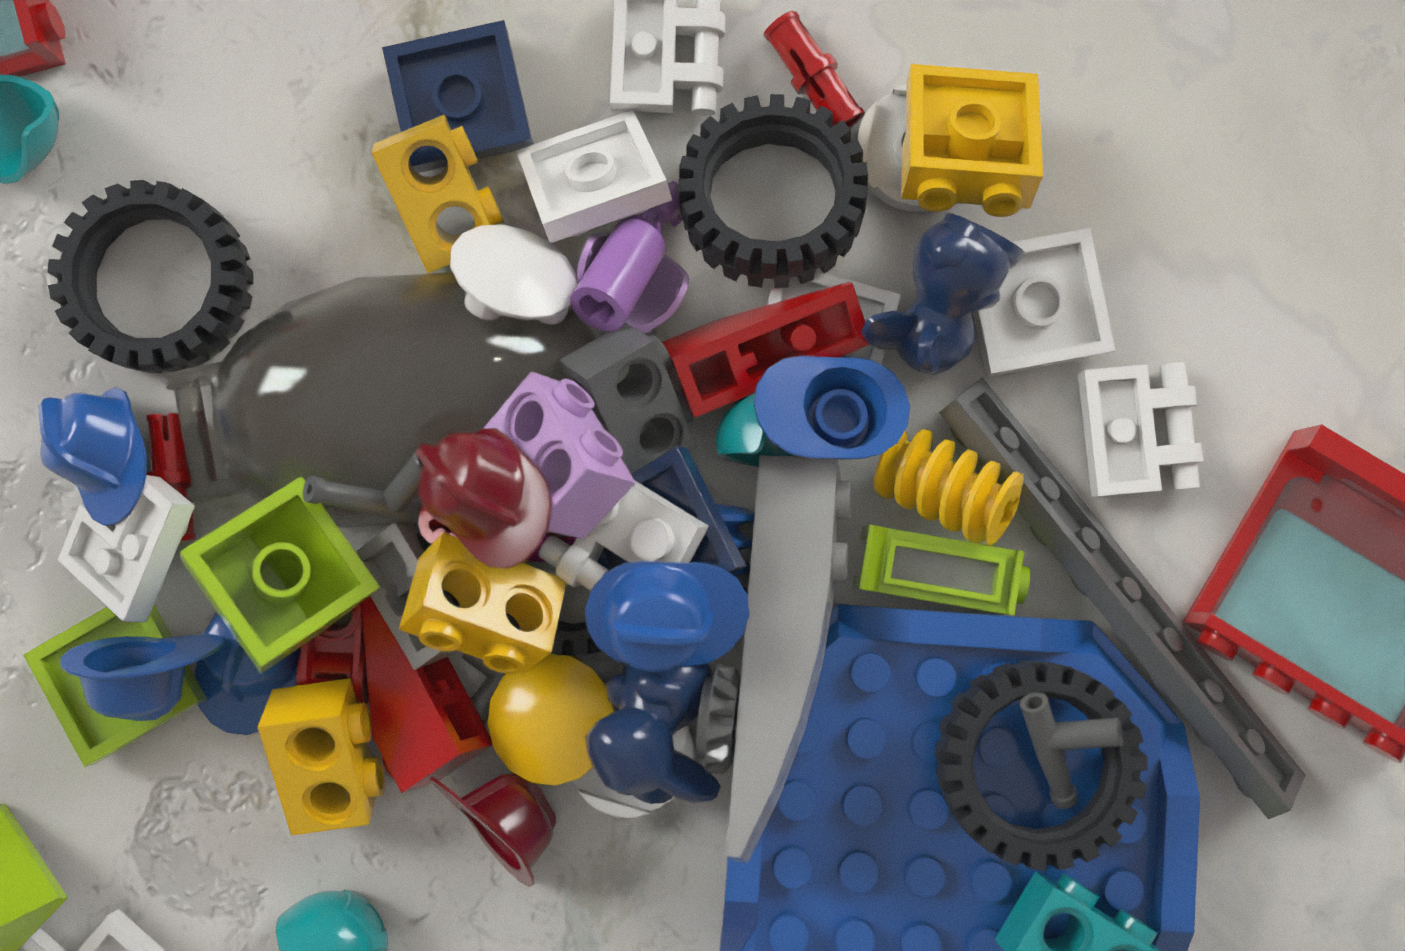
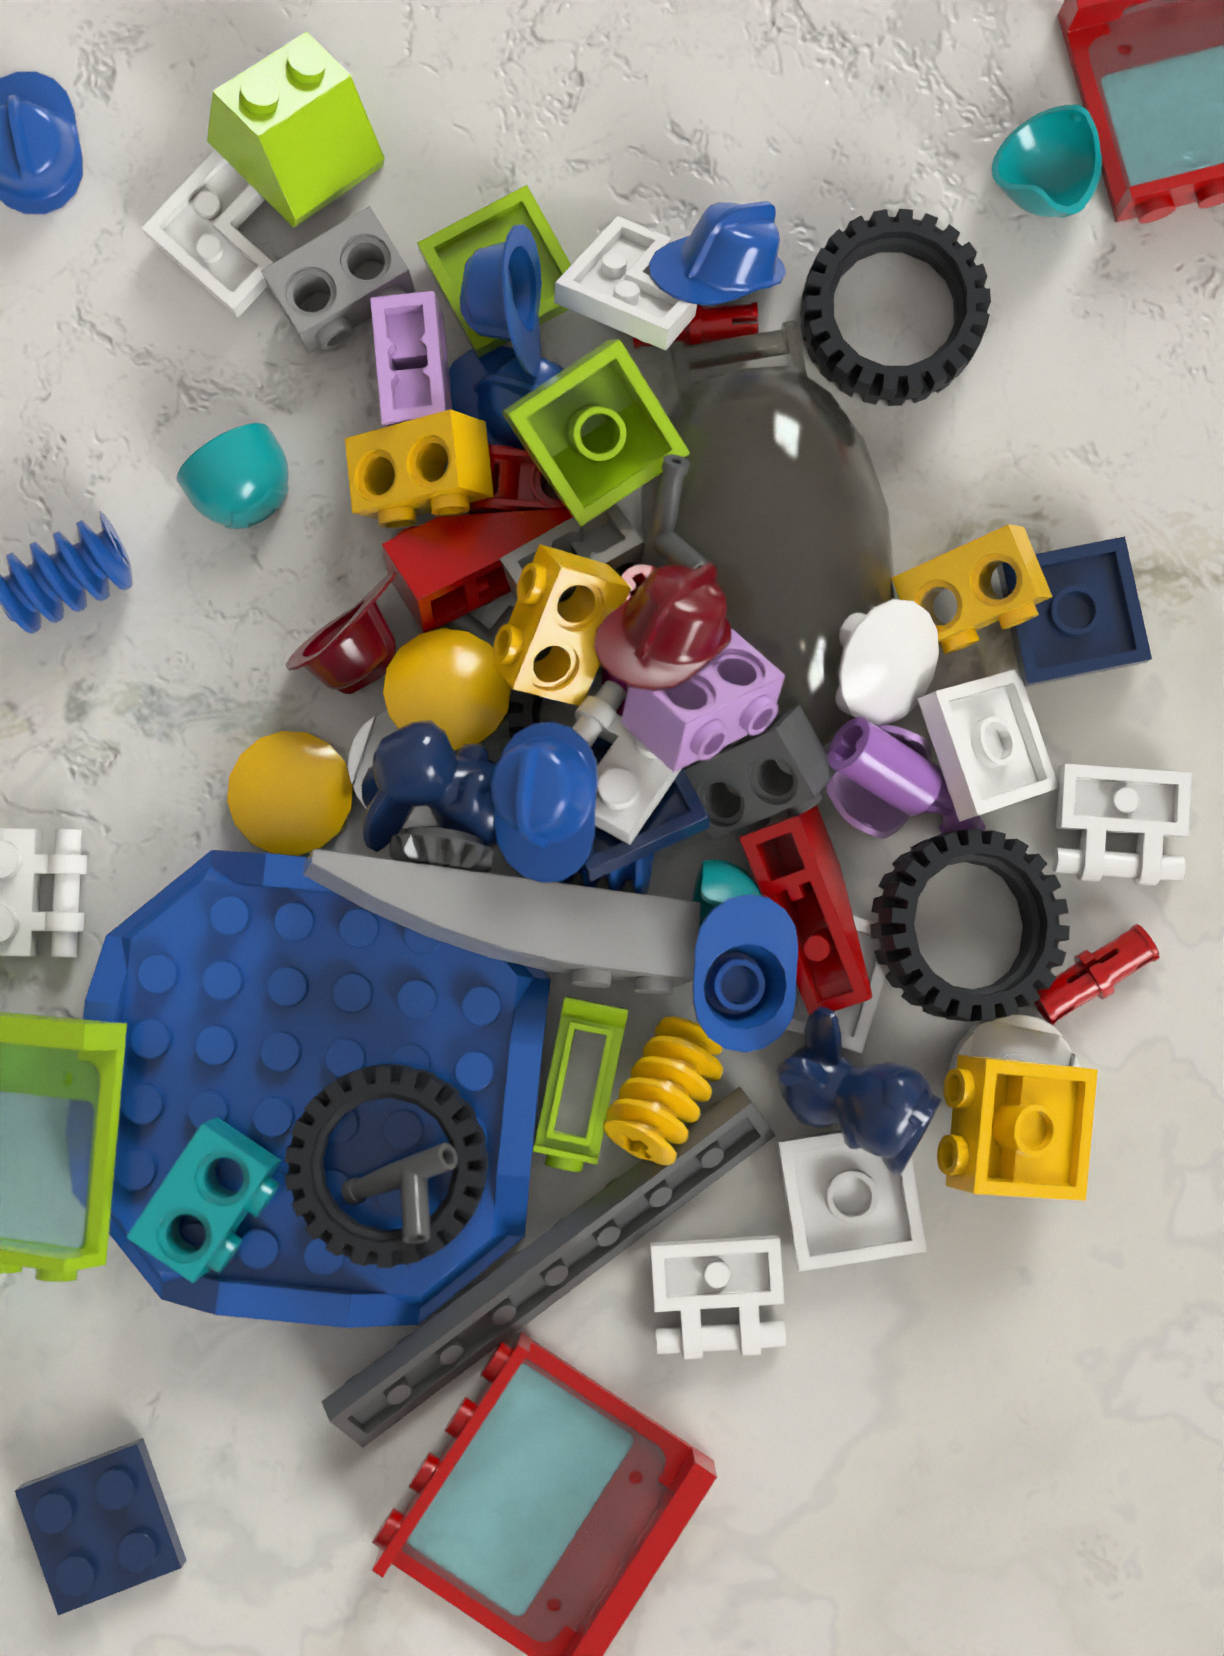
camera: 90 degrees right, 0 degrees up
(110, 857) = (329, 268): none -> light grey brick
(202, 770) = (410, 356): none -> lavender brick
(659, 875) = (290, 793): none -> yellow dish

